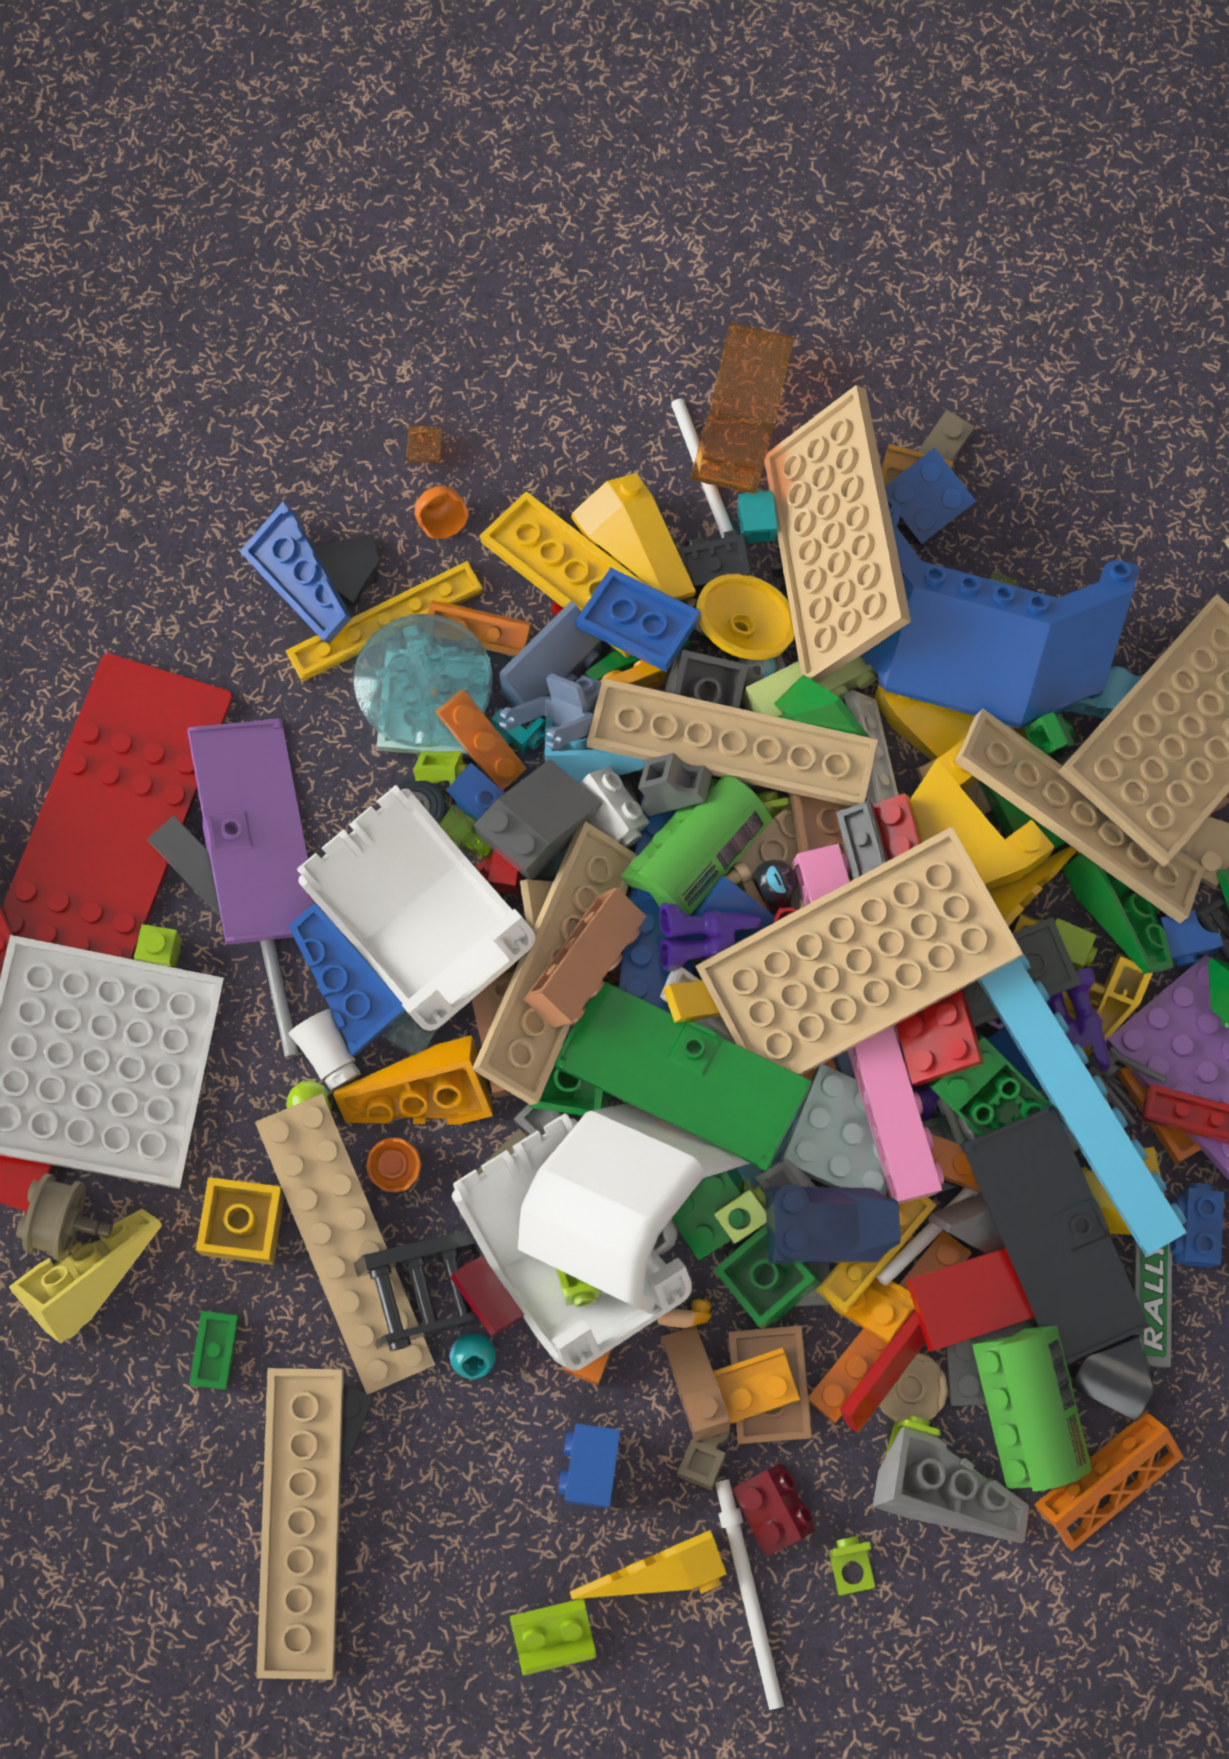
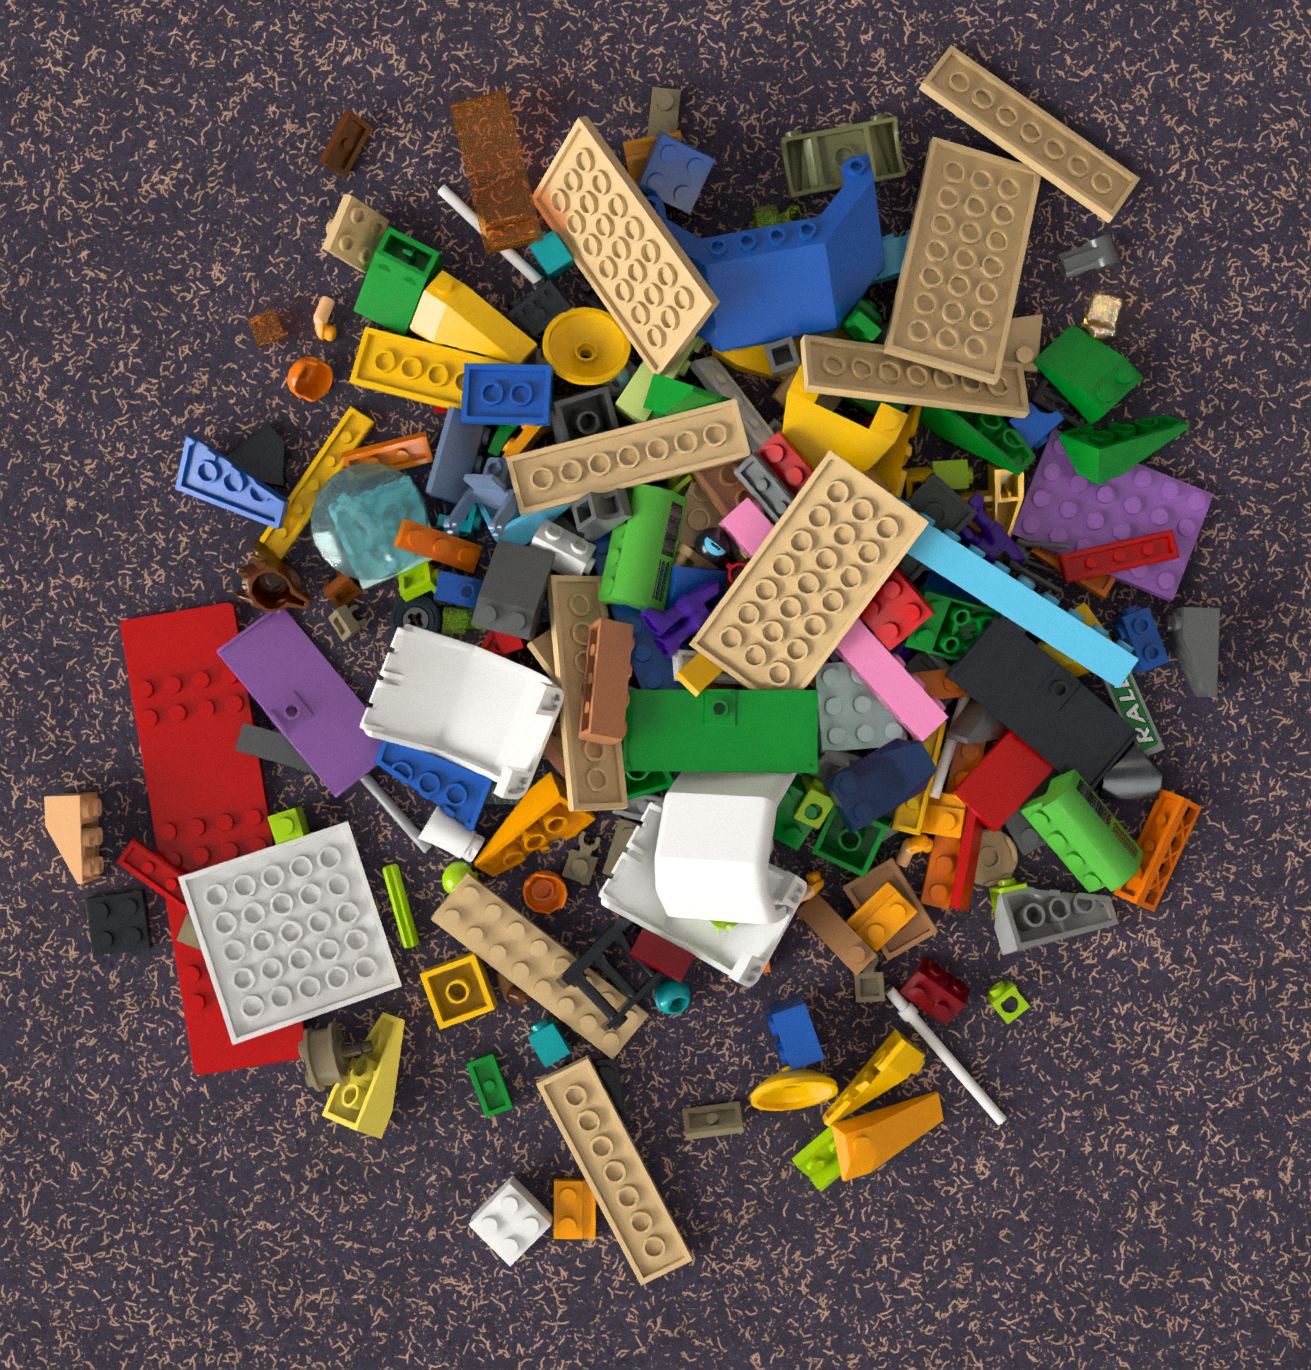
camera: 20 degrees left, 15 degrees up
(151, 1519) = (511, 1220): none -> white brick
(227, 1101) = (400, 906): none -> lime axle
(228, 1548) = (574, 1209): none -> light orange plate
(286, 690) = (271, 582): none -> reddish brown piece
(296, 1259) = (512, 992): none -> reddish brown arm
(307, 1335) = (549, 1041): none -> teal brick
(338, 771) = (345, 623): none -> dark tan tile
(354, 737) = (341, 590): none -> dark orange tile
(442, 1525) = (712, 1120): none -> dark tan plate
(450, 1158) = (580, 862): none -> dark tan plate
(485, 461) = (321, 322): none -> arm
(553, 1534) = (793, 1090): none -> yellow dish
(567, 397) = (355, 233): none -> tan plate
(584, 460) = (397, 281): none -> green slope
(604, 311) = (345, 143): none -> reddish brown plate
(627, 1643) = (877, 1136): none -> light orange wedge
(830, 1328) = (911, 846): none -> arm
(947, 726) = (782, 357): none -> dark grey brick
(1079, 553) = (816, 158): none -> olive piece

